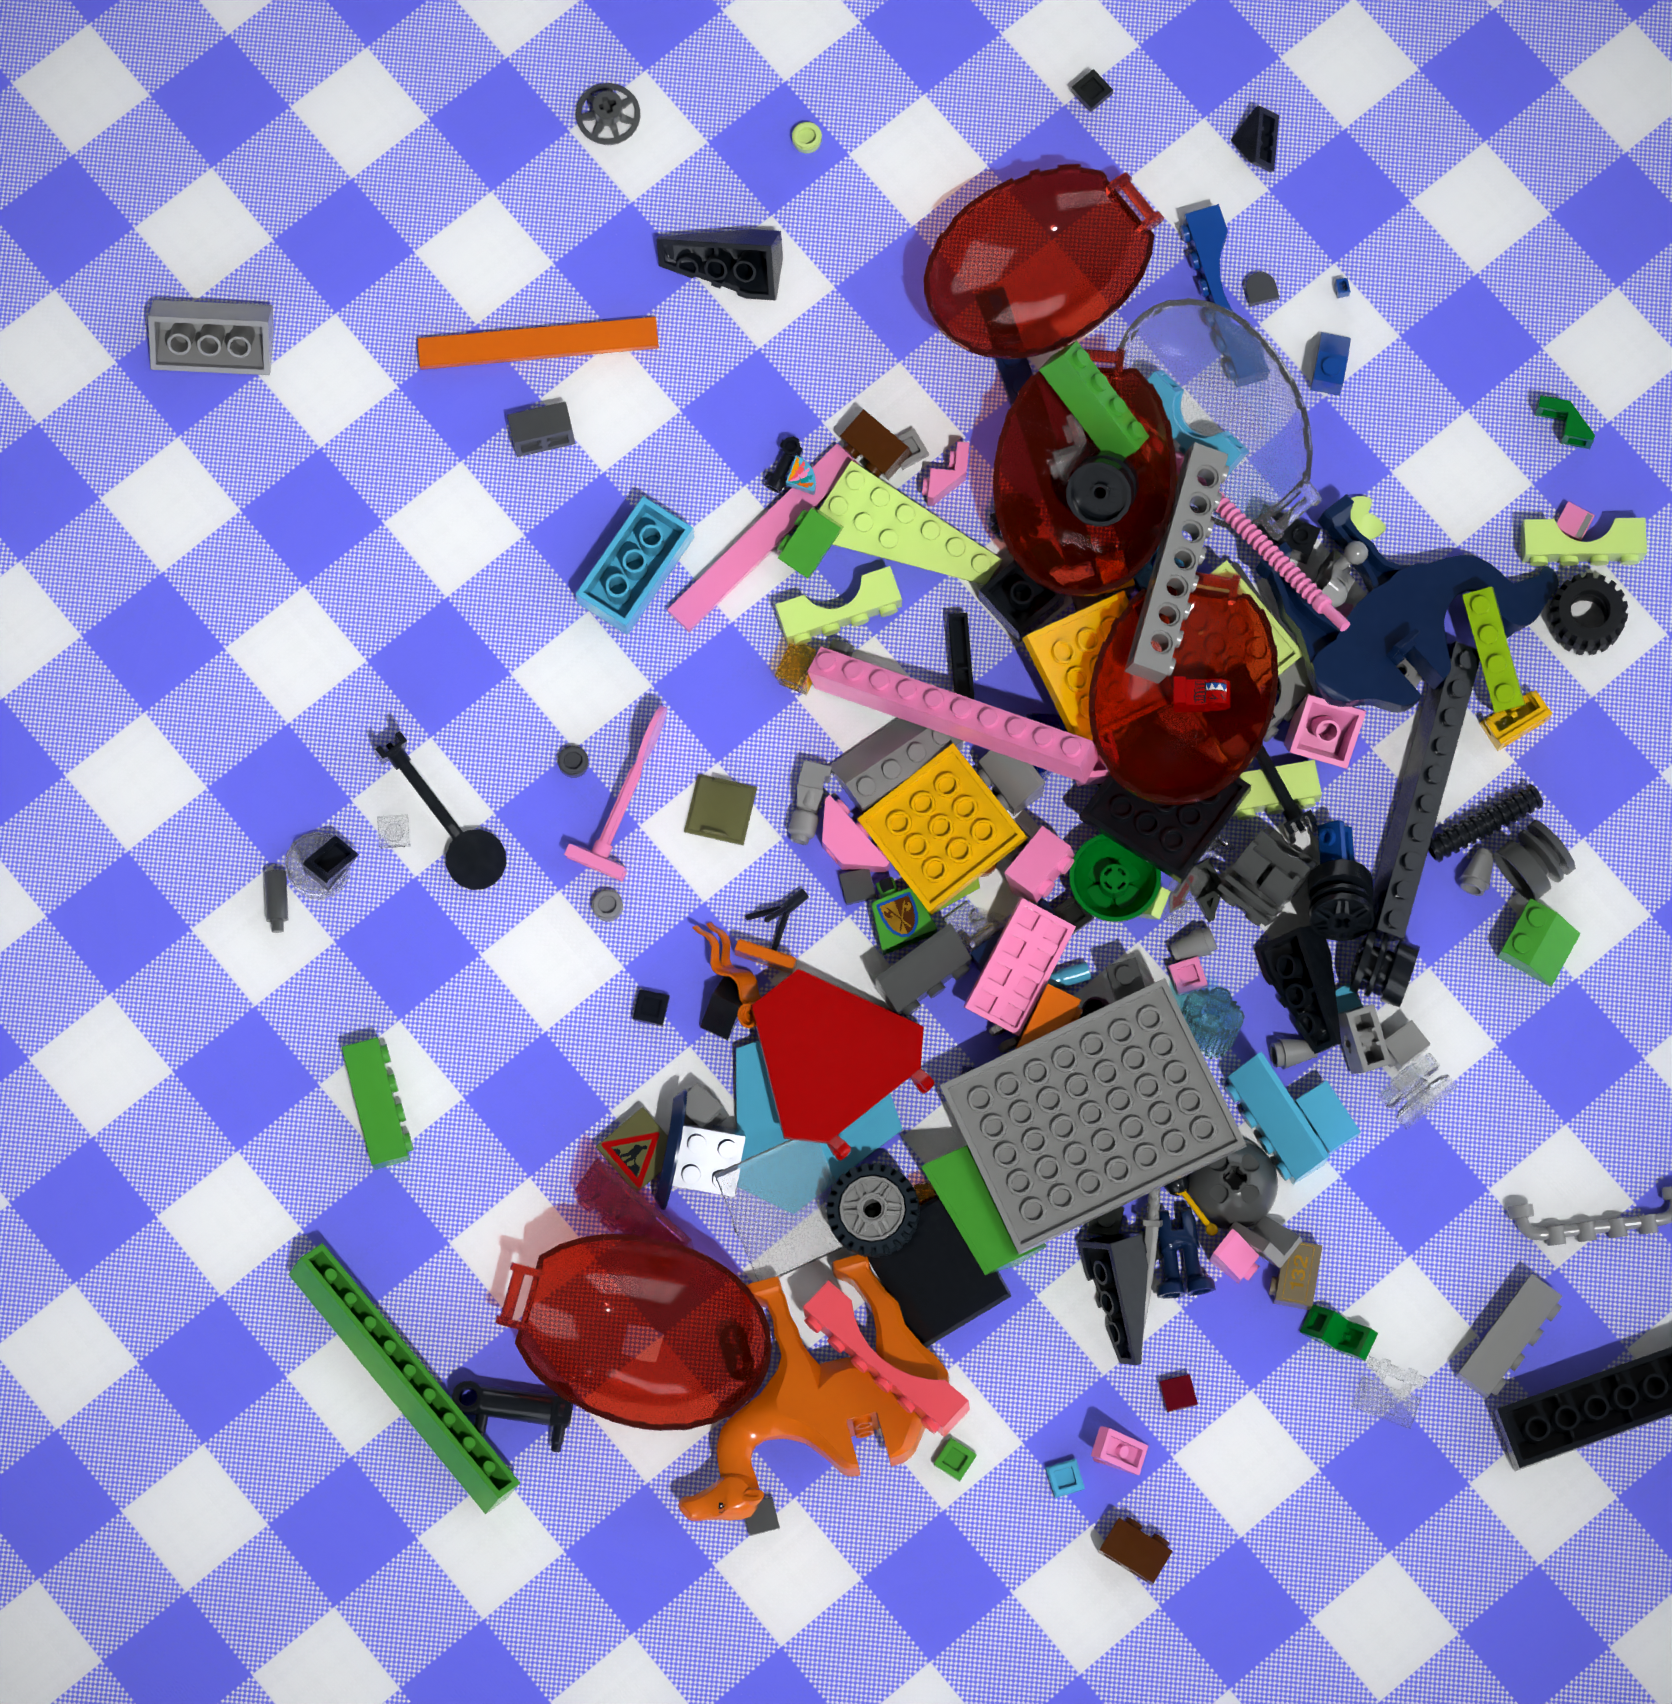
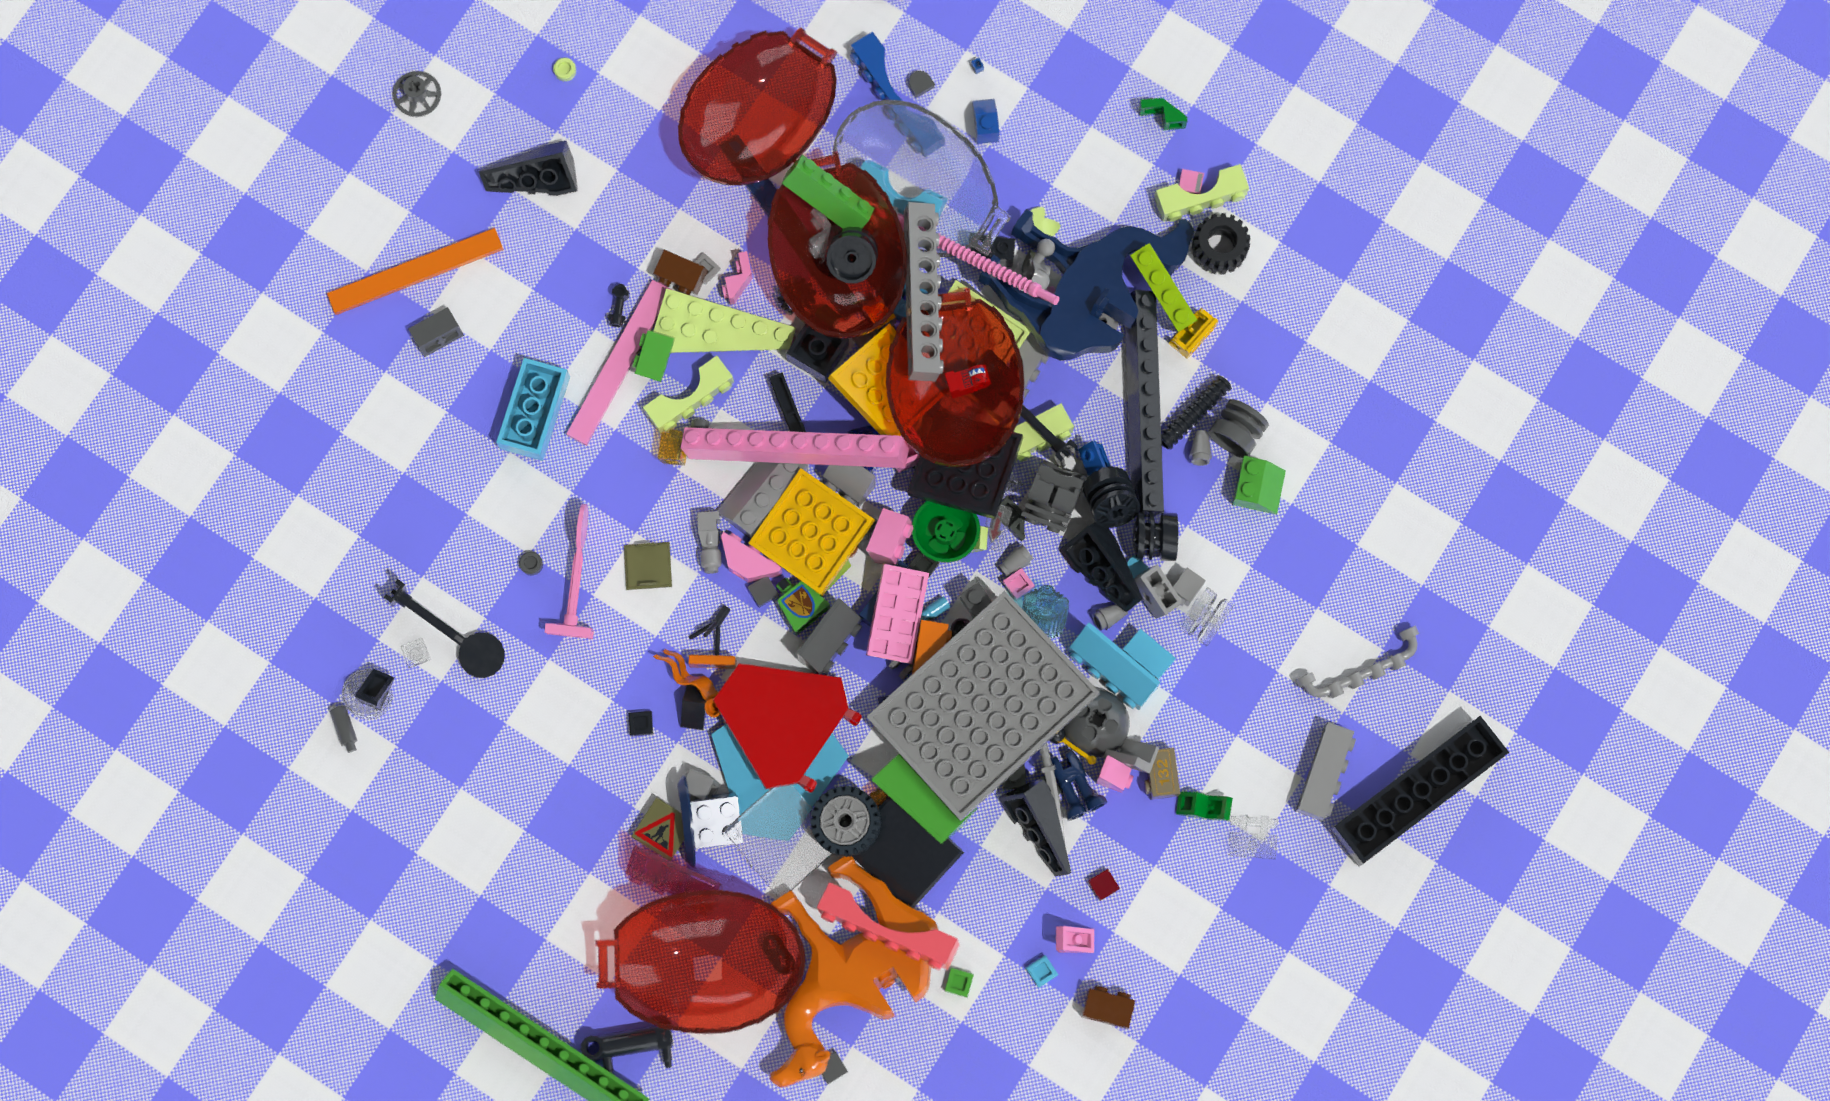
camera: 20 degrees left, 0 degrees up
(211, 337) = (175, 336): light grey slope -> none
(376, 1103) = (462, 854): bright green brick -> none
(607, 905) = (587, 659): light grey tile -> none
(801, 476) = (634, 310): tile -> none
(975, 924) = (855, 593): clear slope -> none
(1324, 731) = (1062, 380): bright pink slope -> none

